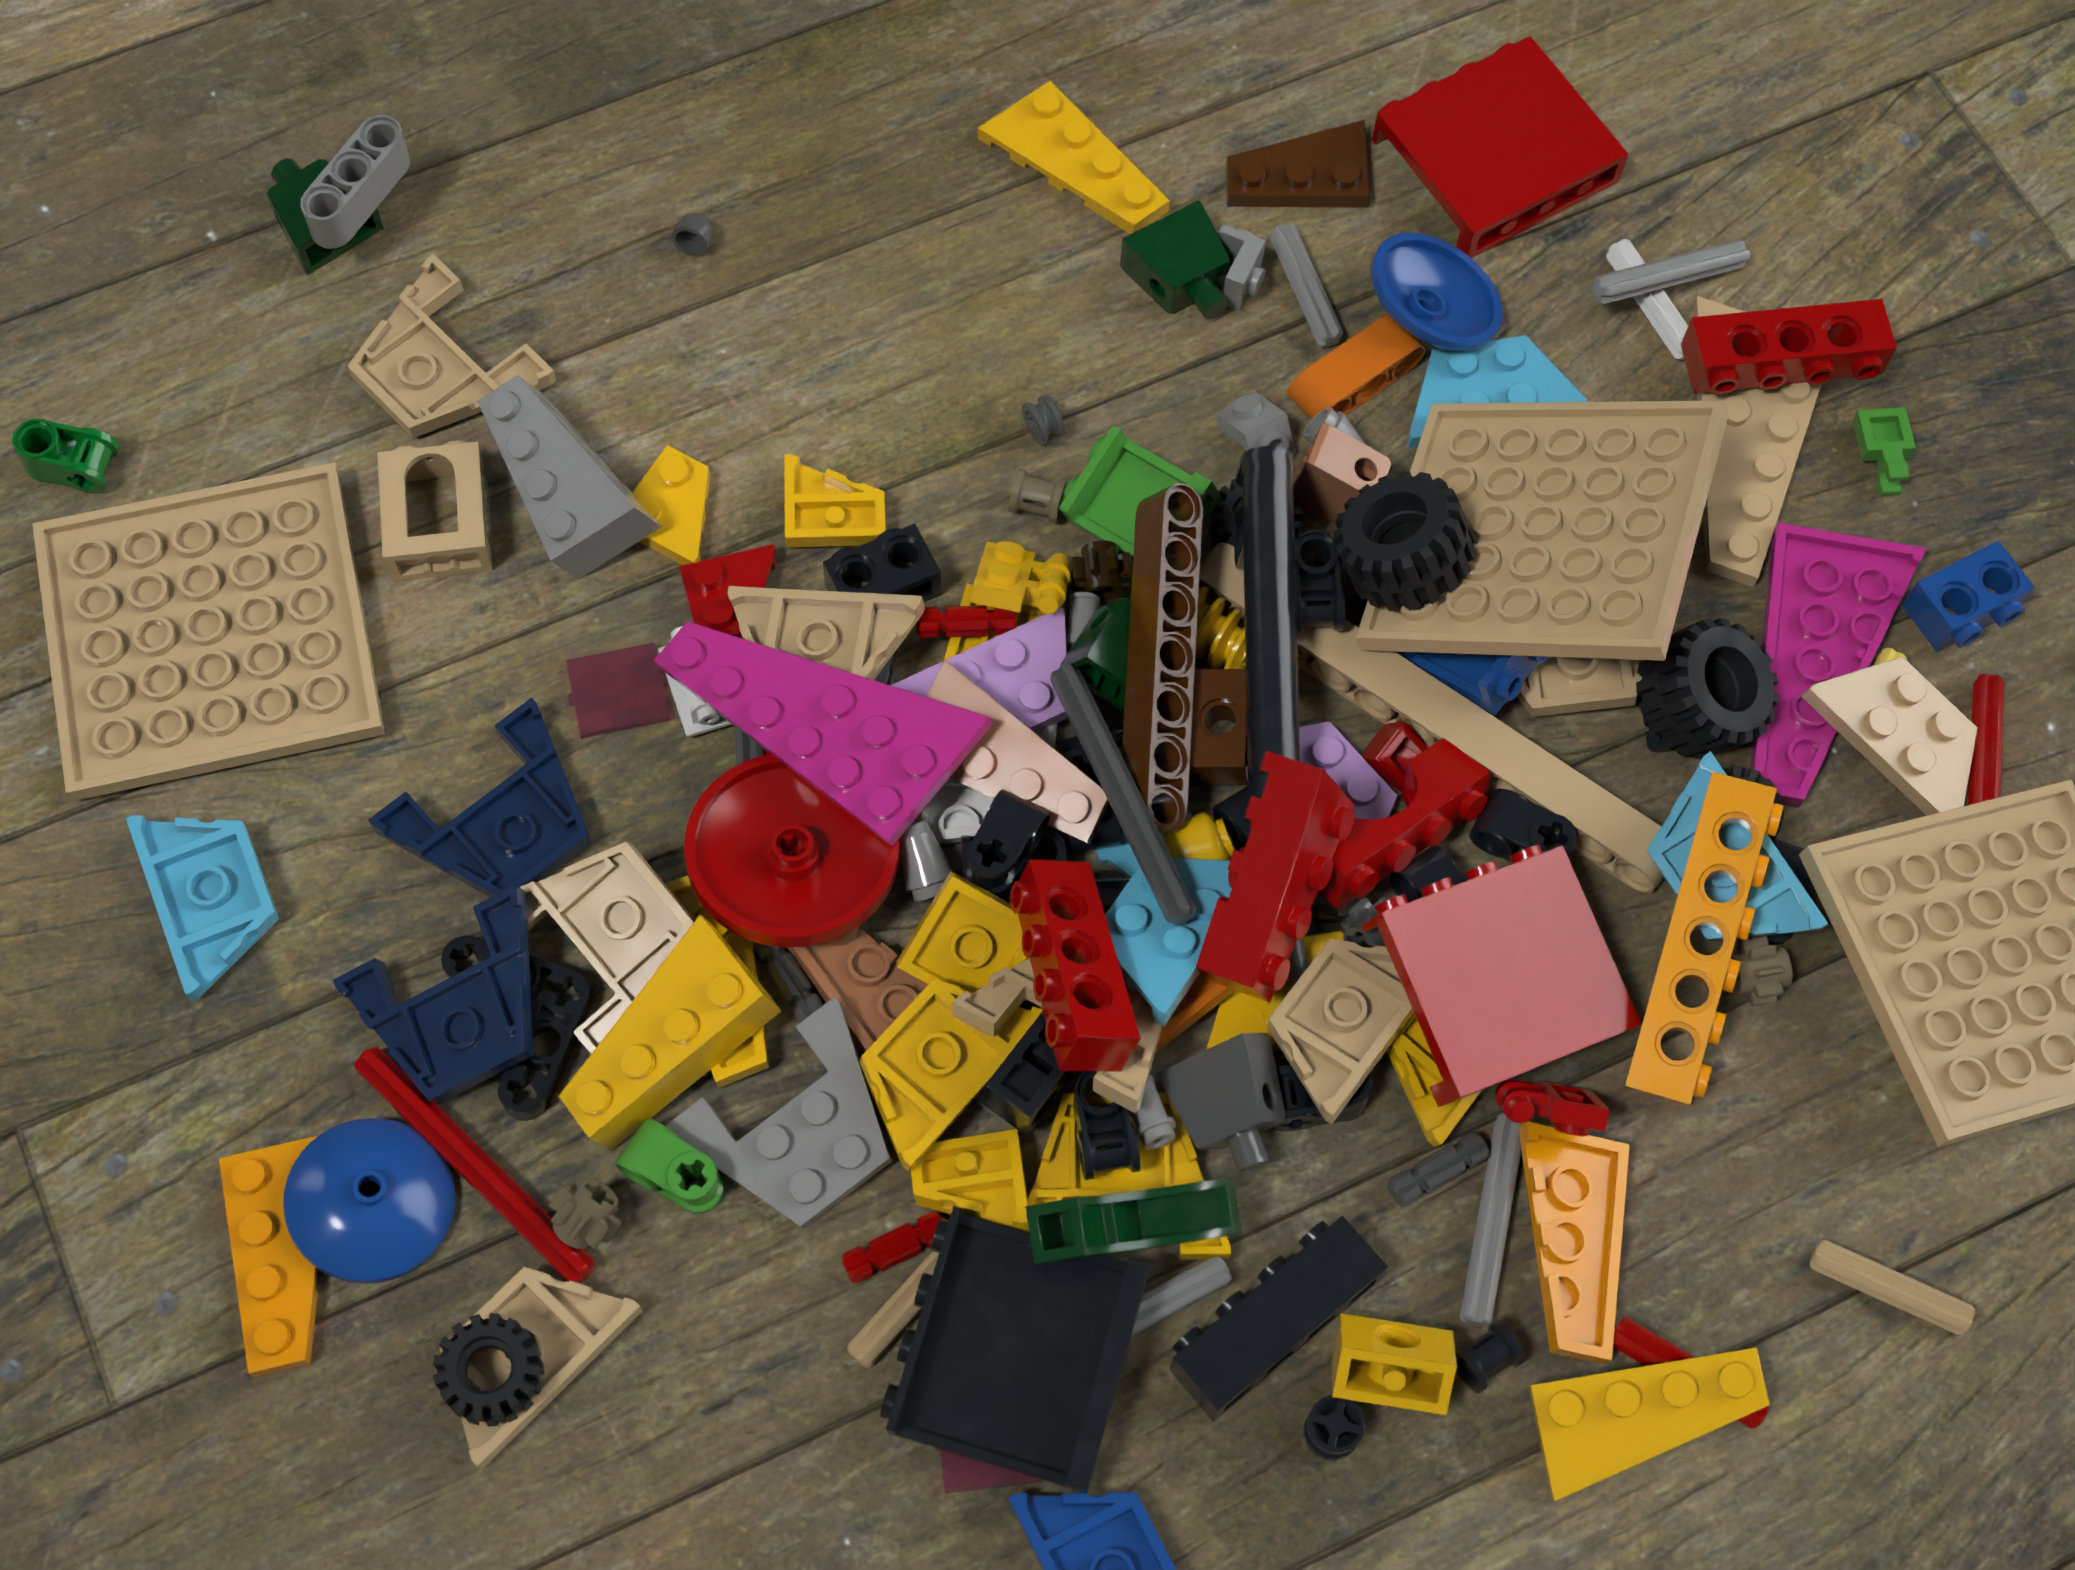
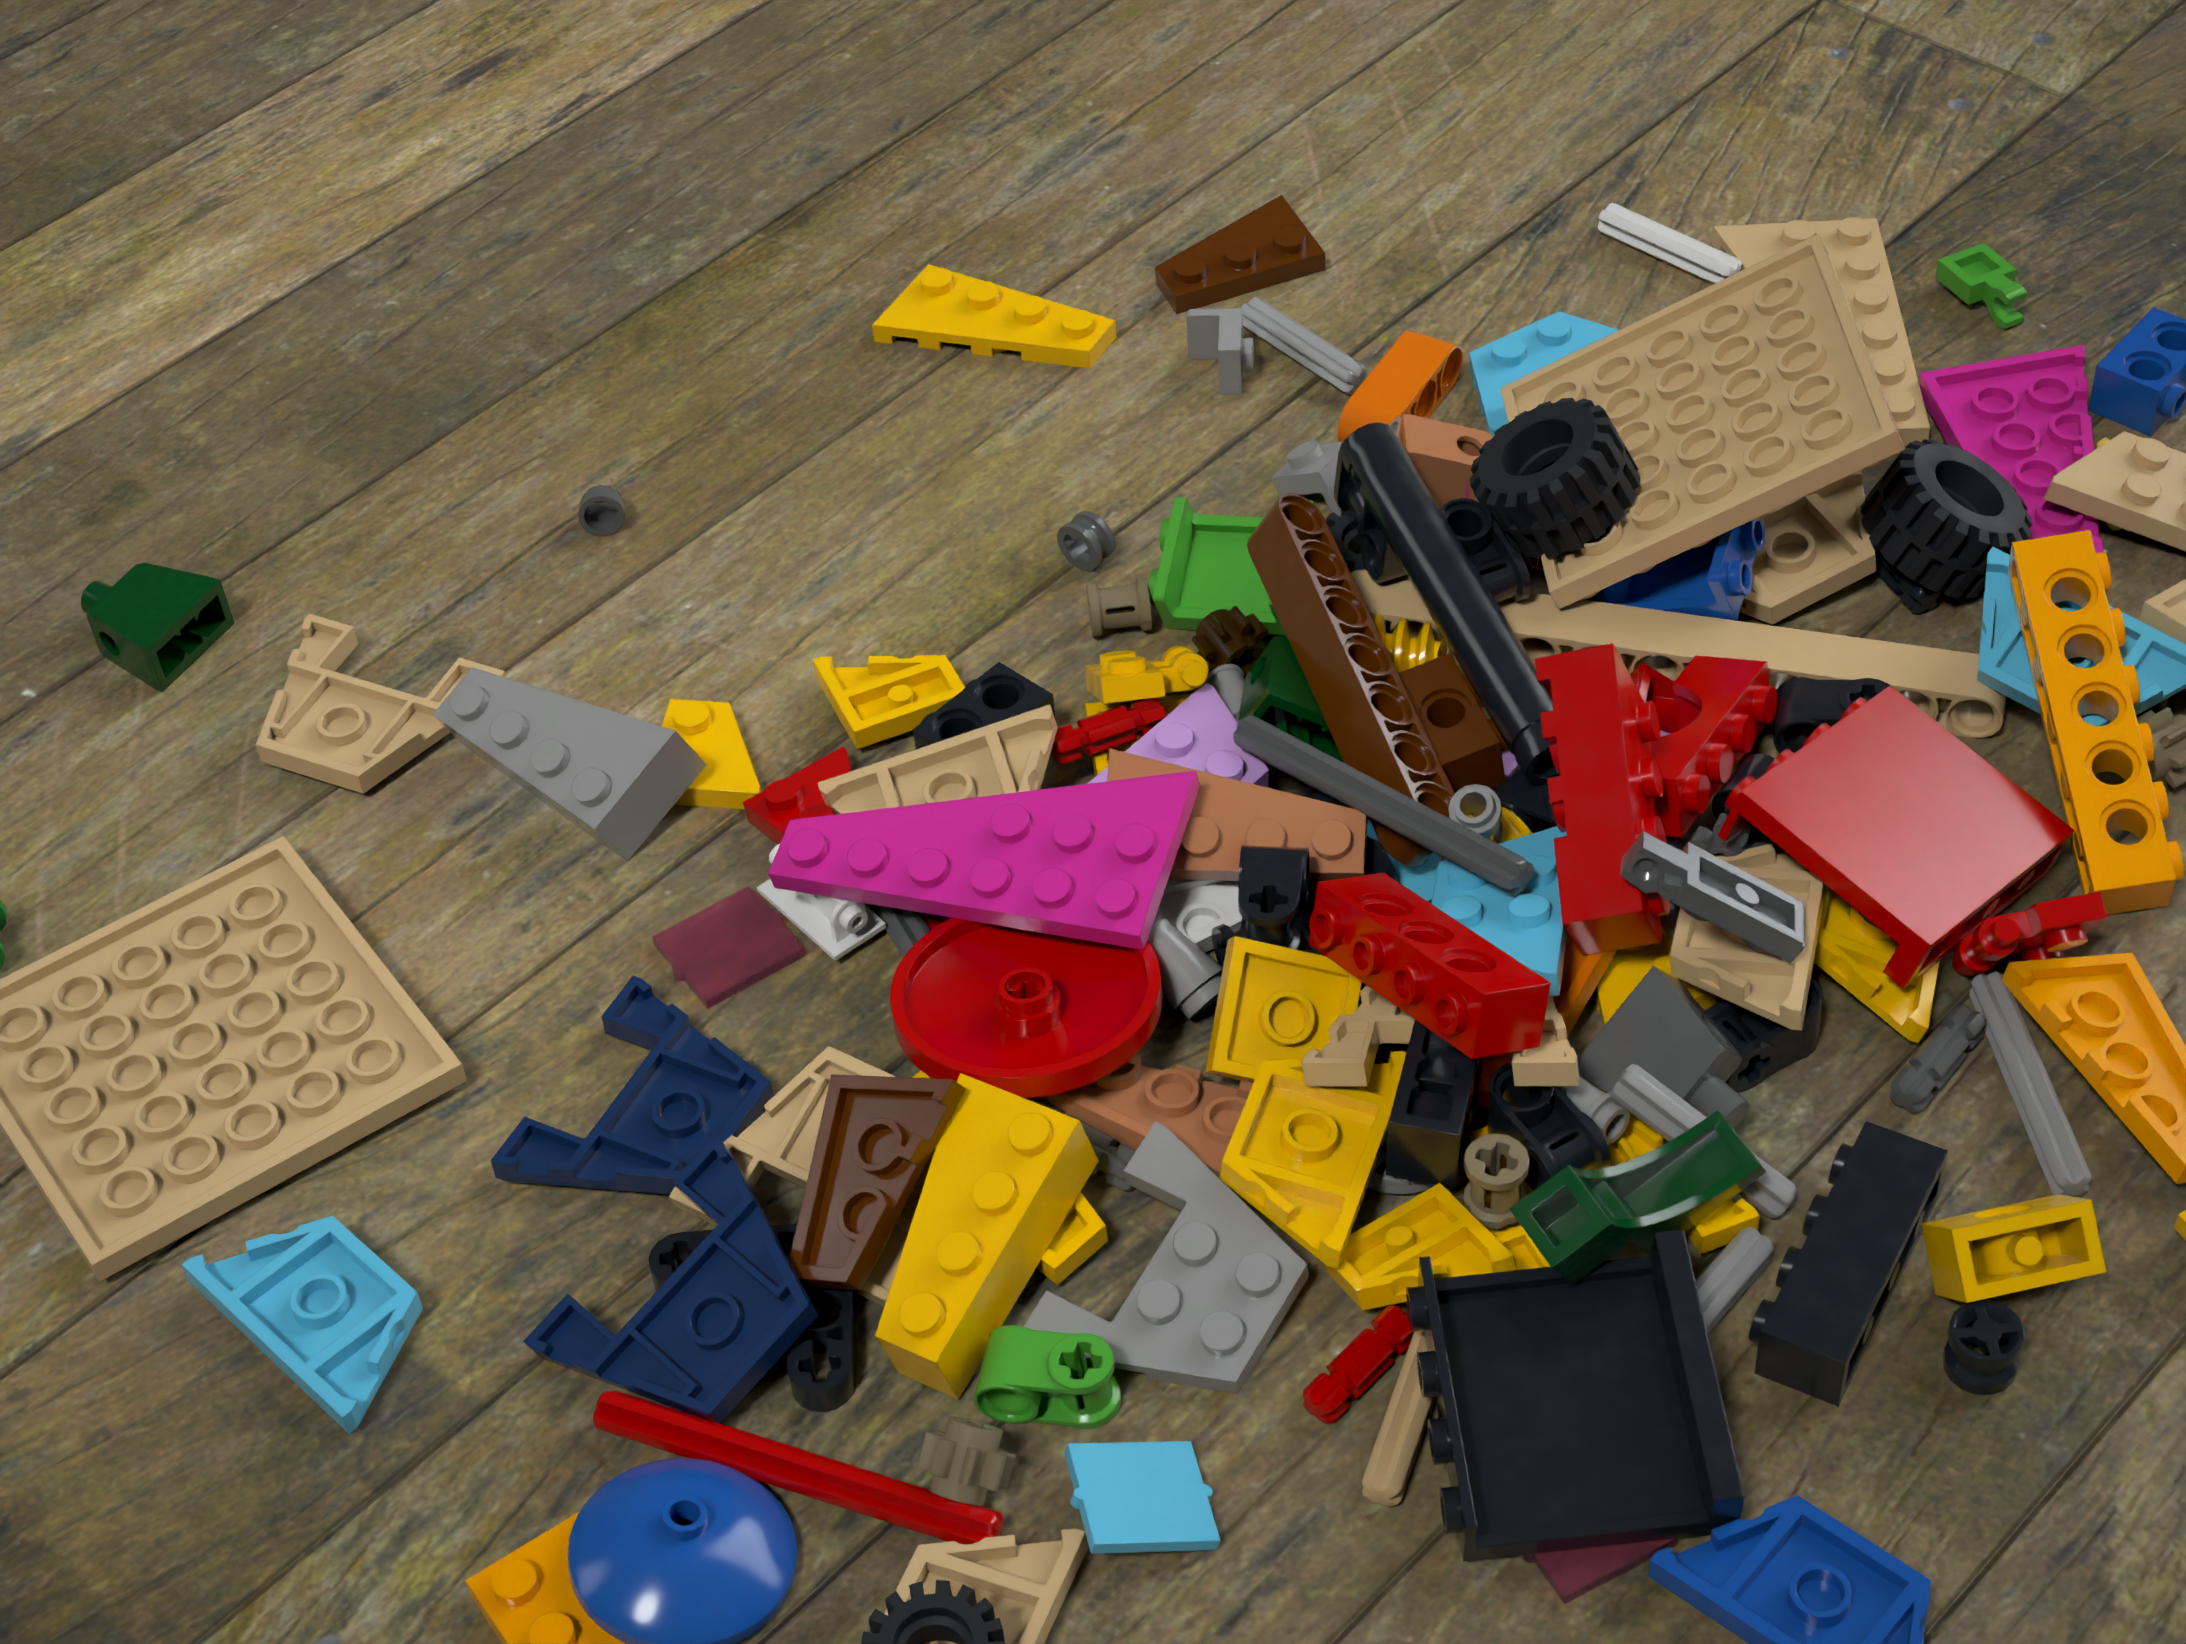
camera: 15 degrees left, 20 degrees down
(355, 181) = (194, 560): light grey beam -> none
(434, 553) = (445, 882): tan panel -> none
(605, 960) = (863, 1170): none -> reddish brown wing
(693, 1291) = (1141, 1497): none -> medium azure piece
(1049, 1136) = (1484, 1170): none -> dark tan bush
(1174, 834) = (1484, 809): none -> light grey pin
(1179, 262) = (1156, 364): dark green torso -> none
(1211, 1164) = (1673, 1116): none -> light grey axle
(1315, 1001) = (1718, 894): none -> dark grey hinge
(1435, 292) = (1445, 299): blue dish -> none
(1488, 1356) = (2118, 1200): black bush -> none
(1502, 144) = (1440, 167): red panel -> none
(1669, 271) = (1674, 209): light grey axle -> none
(1809, 332) = (1850, 212): red brick -> none

